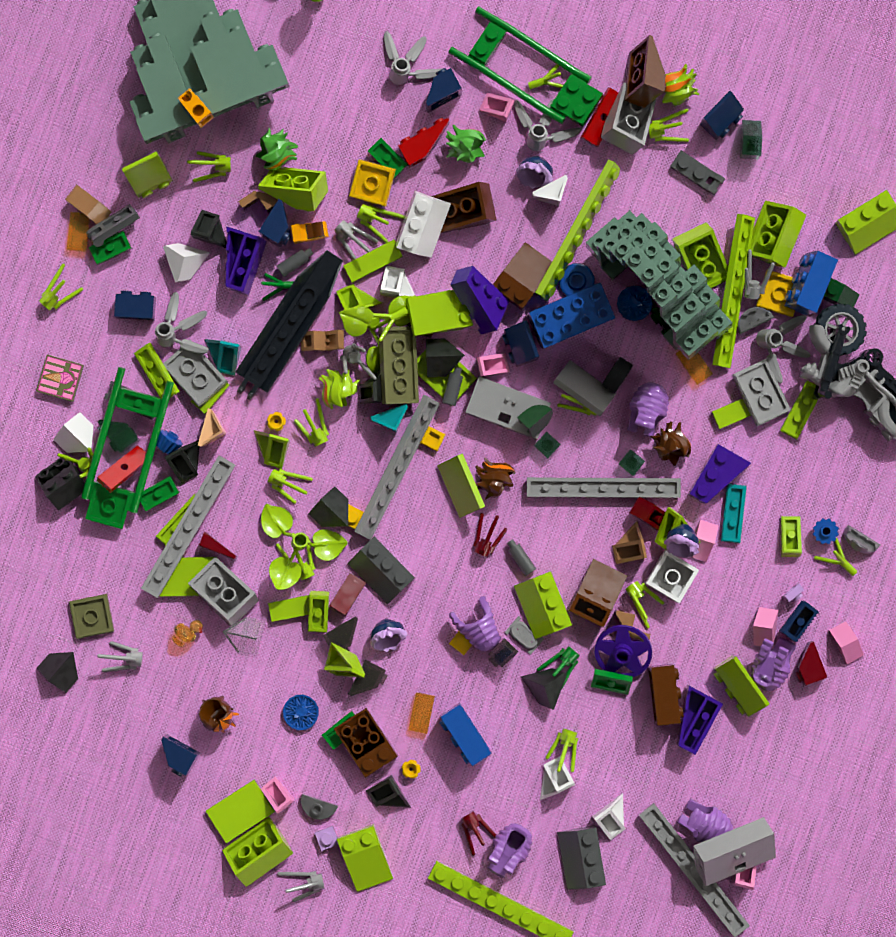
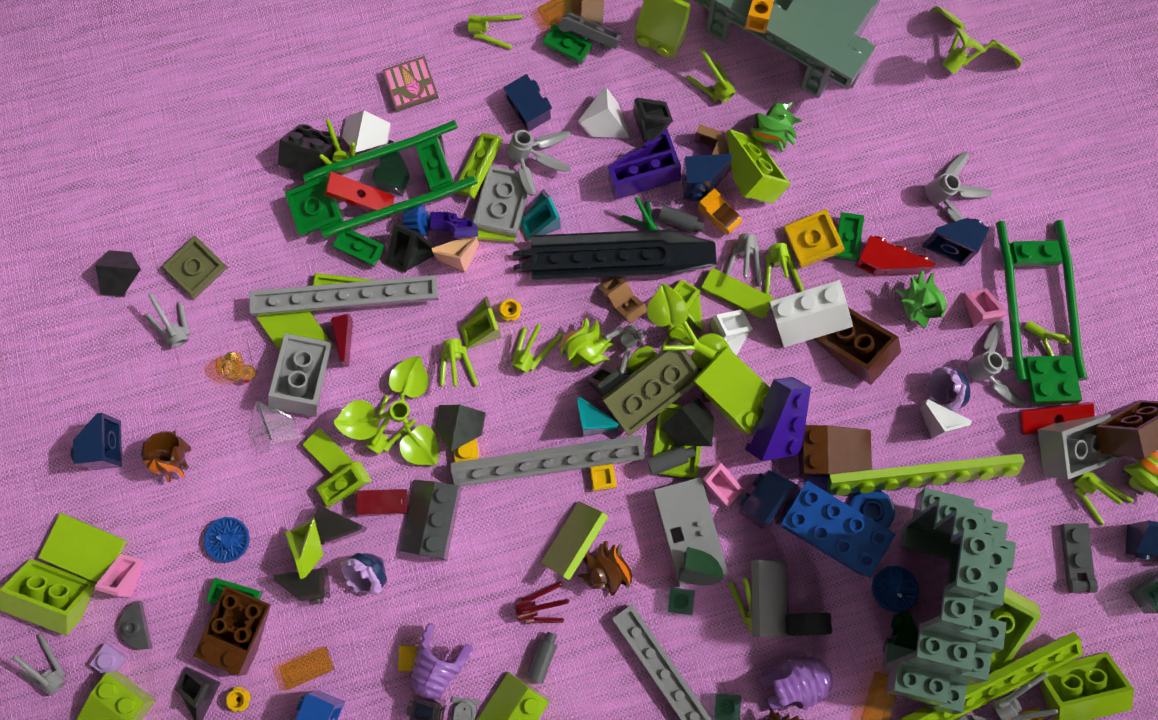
camera: 60 degrees right, 10 degrees down
(185, 420) = (451, 223): none -> dark purple tile

